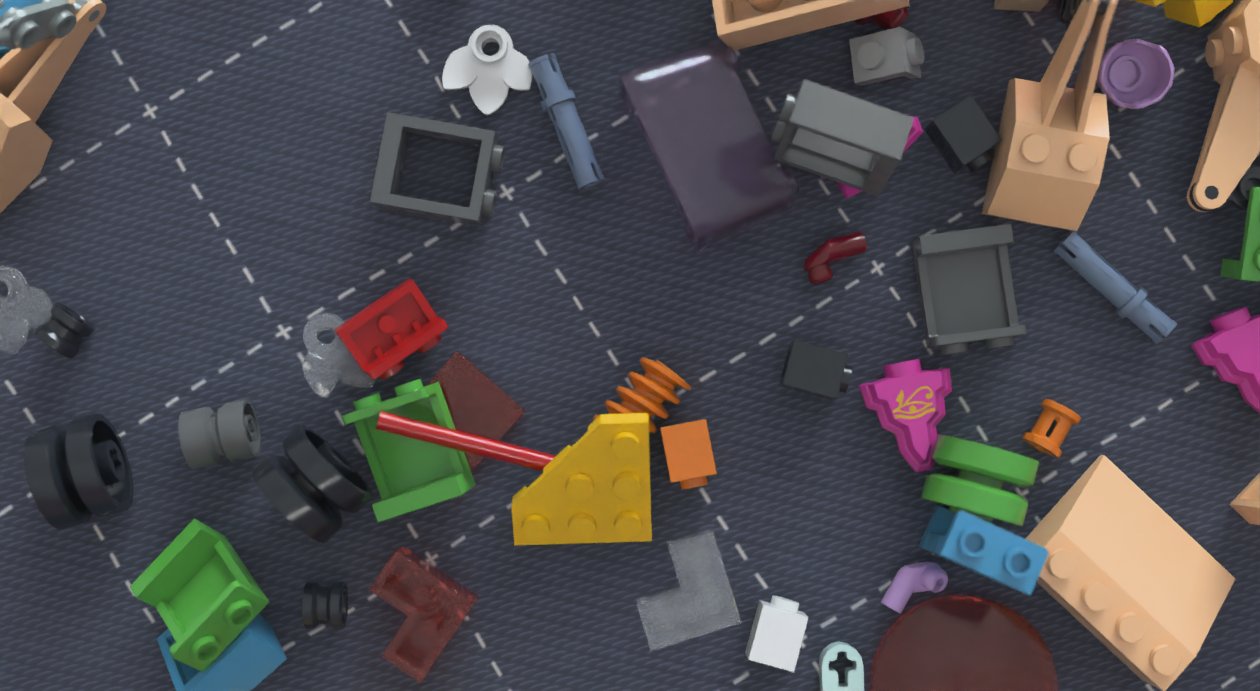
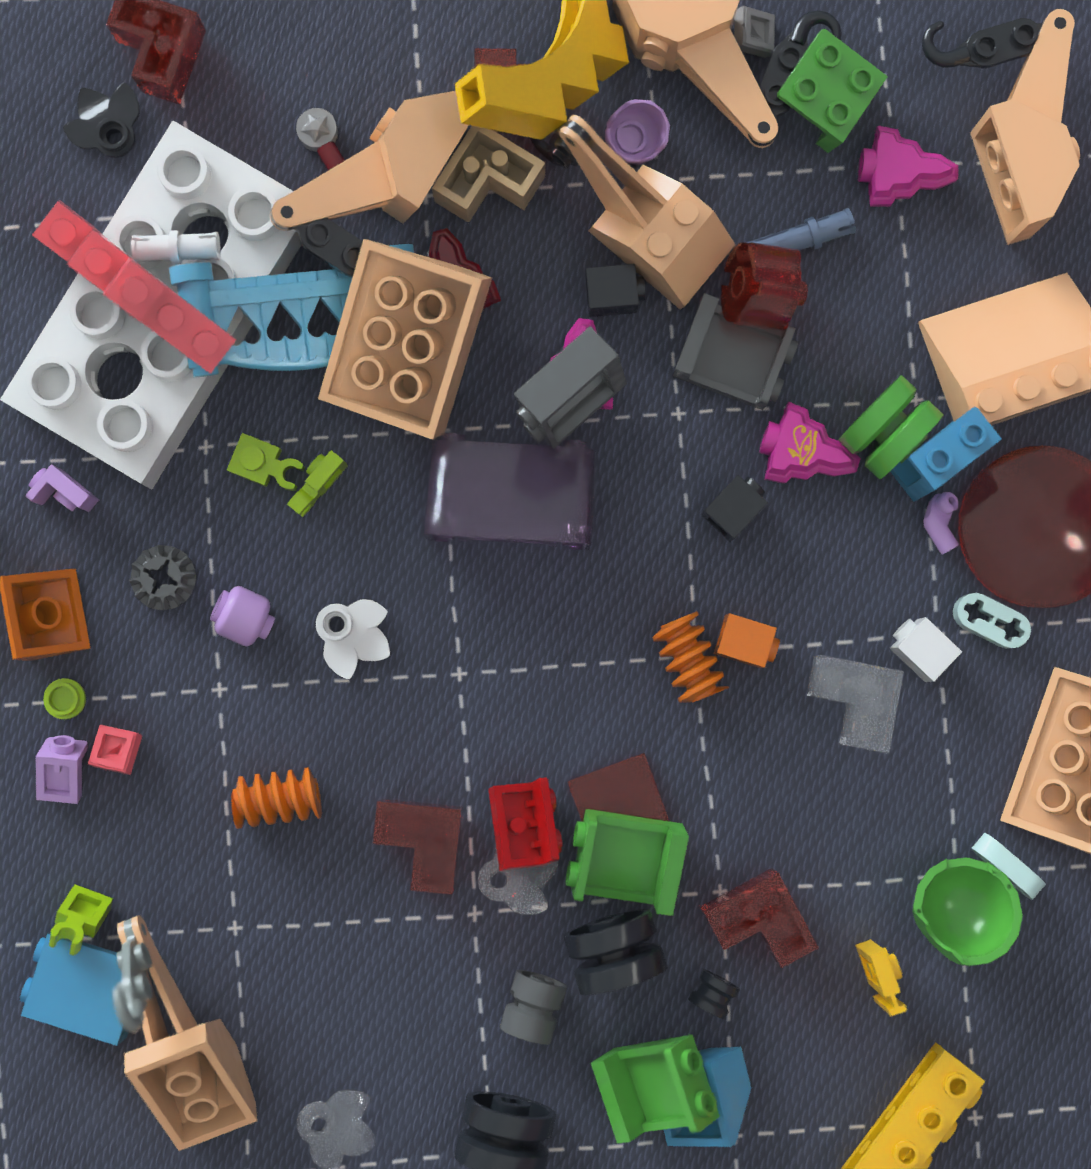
camera: 70 degrees left, 0 degrees up
(64, 330) = (380, 1090): black wheel -> none
(288, 79) = (275, 798): none -> orange piece
(332, 248) = (433, 833): none -> clear red brick
(392, 160) = (385, 750): dark grey window -> none
(462, 441) = (727, 721): red bar -> none
(563, 113) = (429, 595): sand blue pin -> none
(591, 488) = (736, 732): yellow plate -> none
(830, 251) = (647, 443): dark red arm -> none
(886, 56) = (516, 315): light grey bracket -> none
(1051, 277) = (763, 286): none -> clear red brick
(1065, 419) = (877, 335): orange bush -> none

